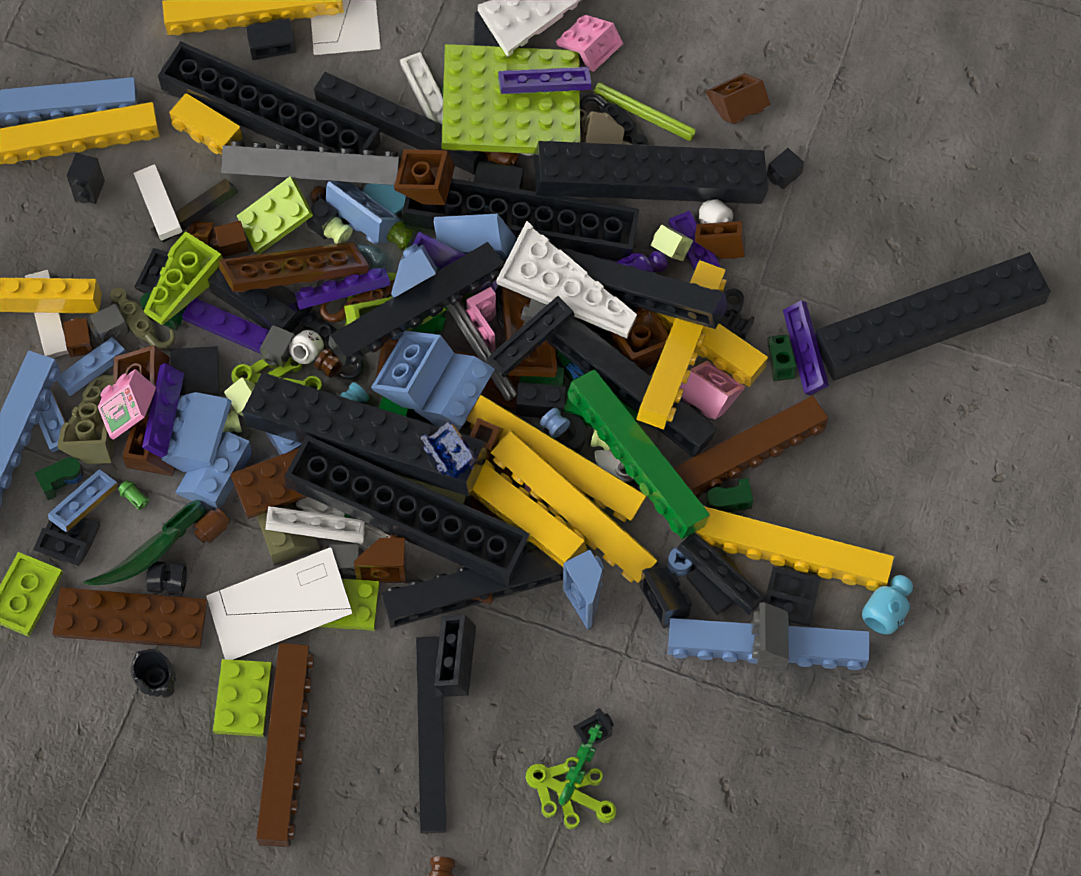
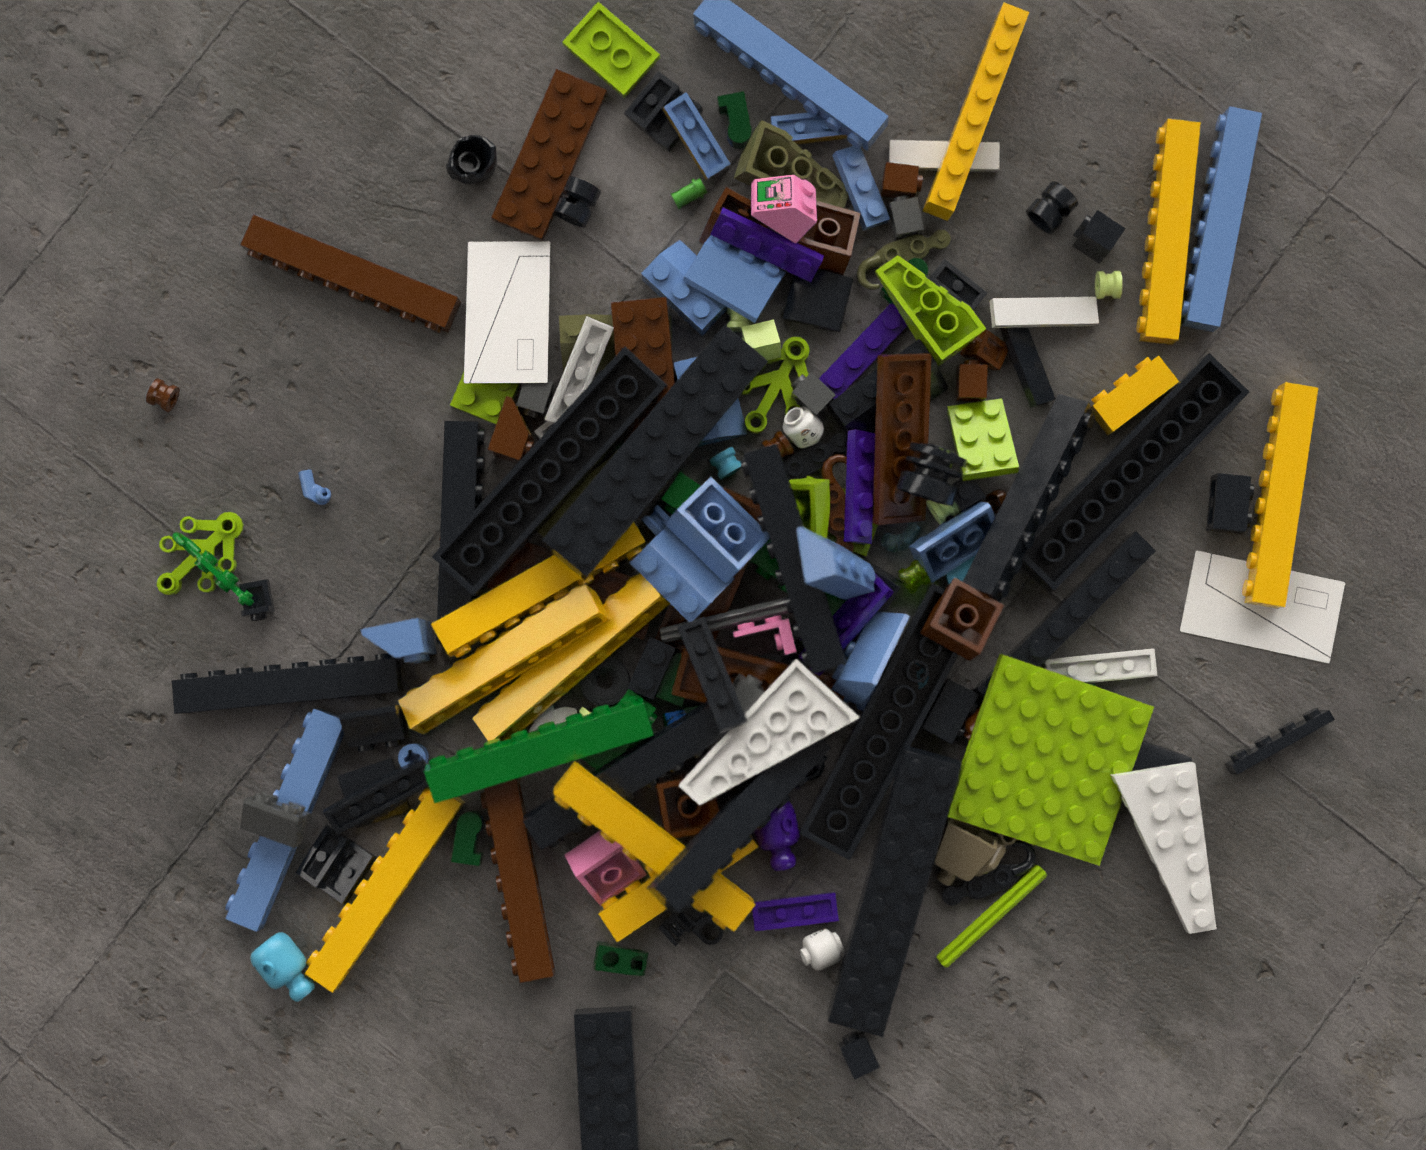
camera: 110 degrees right, 20 degrees up
(66, 219) = (1055, 204): none -> black wheel
(121, 165) = (1108, 284): none -> yellowish green wheel
(153, 548) = (610, 187): dark green plant -> none
(211, 526) = (623, 265): reddish brown brick -> none
(242, 698) = (420, 247): lime plate -> none
(315, 232) = (931, 473): none -> black wheel
(430, 739) = (314, 429): black tile -> none
(449, 450) = (578, 529): clear blue bracket -> none
(455, 655) = (383, 478): black brick -> none
(485, 716) = (311, 490): none -> medium blue arm
(486, 432) = (607, 585): reddish brown brick -> none
(544, 80) = (1056, 806): dark purple plate -> none
(554, 422) = (611, 672): medium blue wheel -> none
(593, 39) = (1109, 884): bright pink bracket -> none
(658, 681) = (286, 685): none -> black brick
(671, 242) = (799, 884): yellowish green brick -> none
(722, 238) = (786, 944): reddish brown slope -> none
(739, 98) = (973, 1035): reddish brown slope -> none
(805, 348) = (621, 991): dark purple plate -> none

